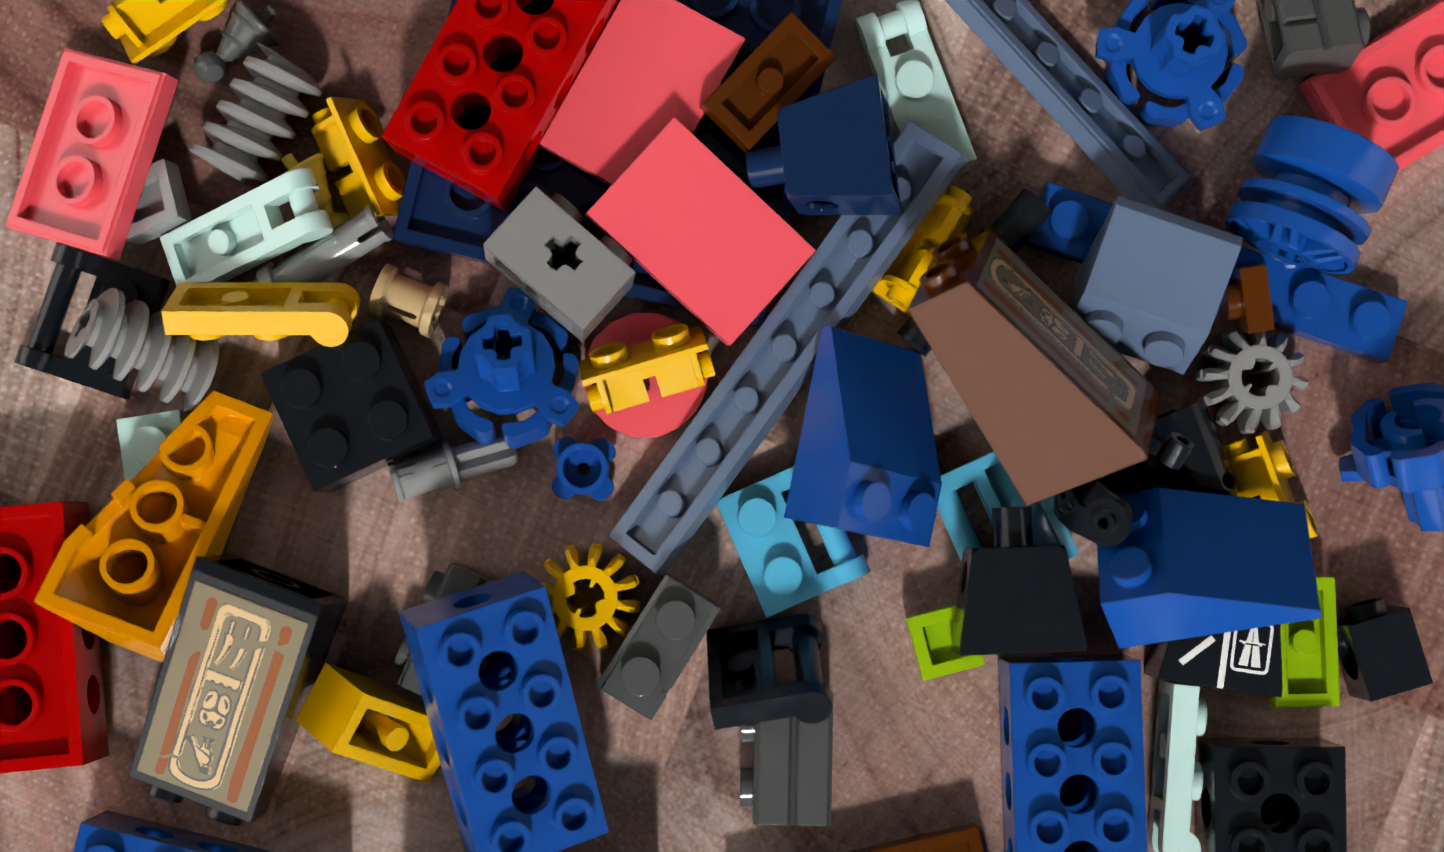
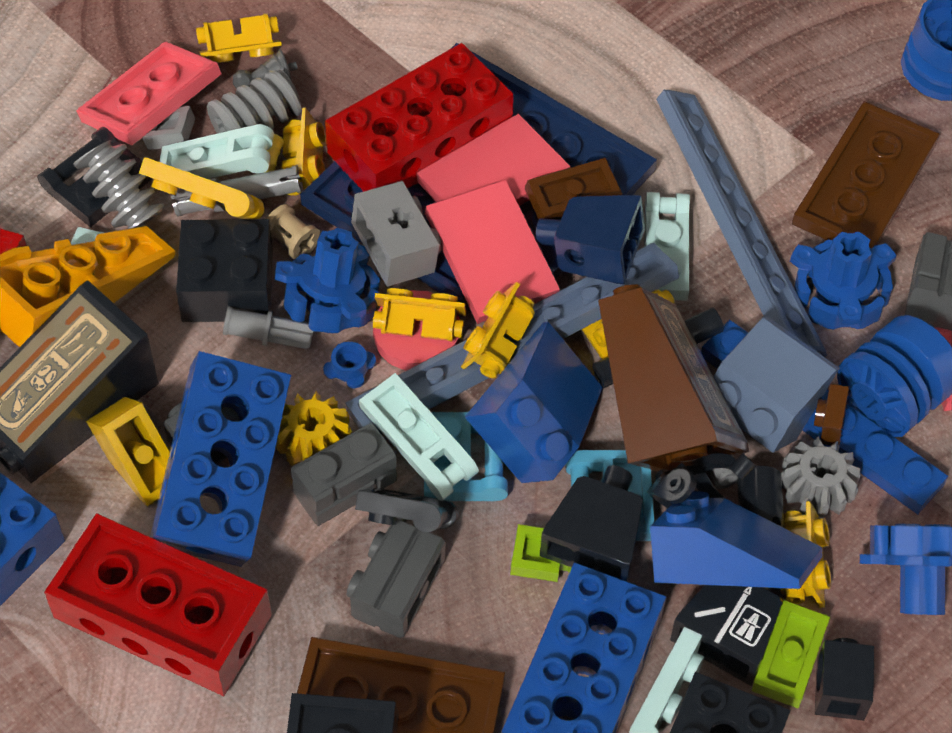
camera: 25 degrees right, 30 degrees down
(732, 565) = (417, 435): none -> light aqua plate
(764, 398) = (505, 315): none -> yellow hinge

